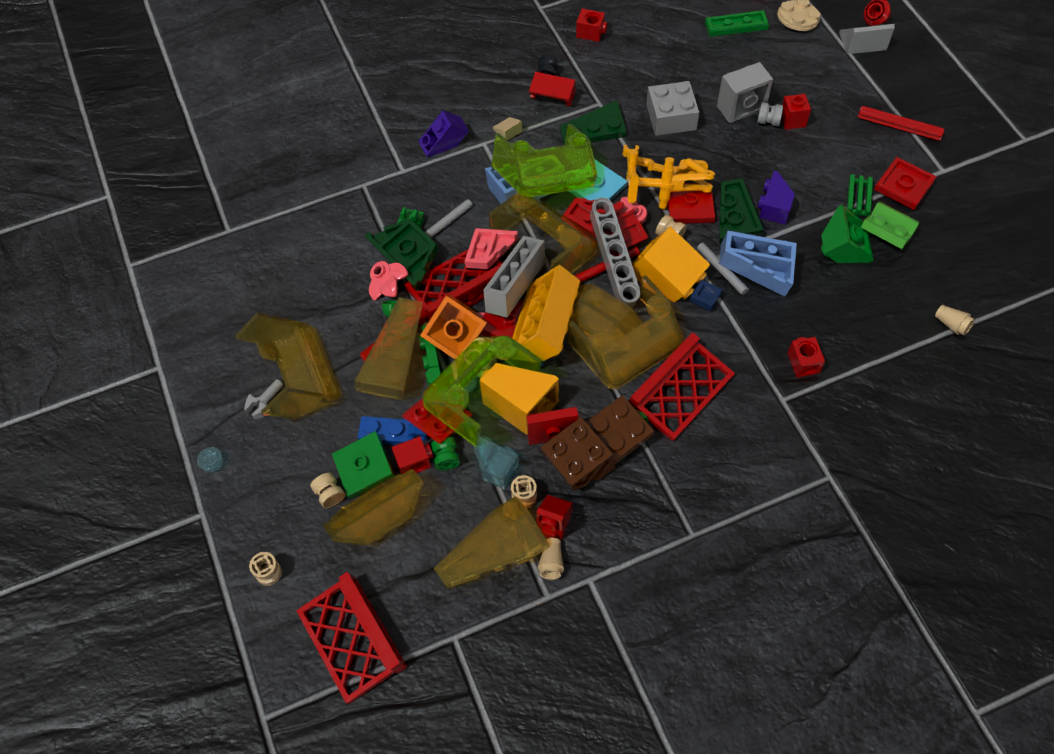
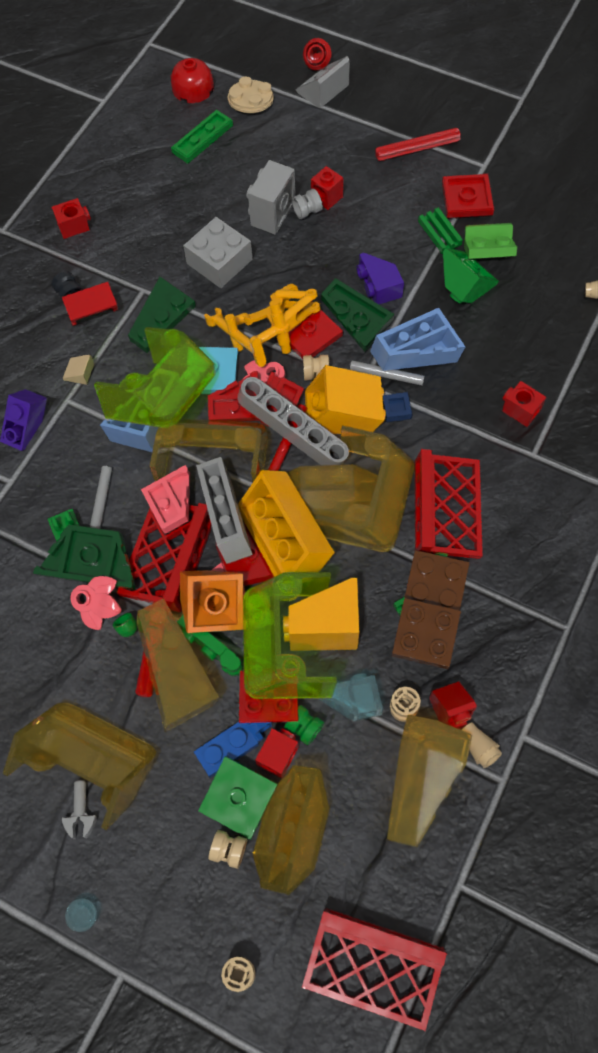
camera: 40 degrees left, 5 degrees up
(546, 425) = (380, 625): red plate -> none

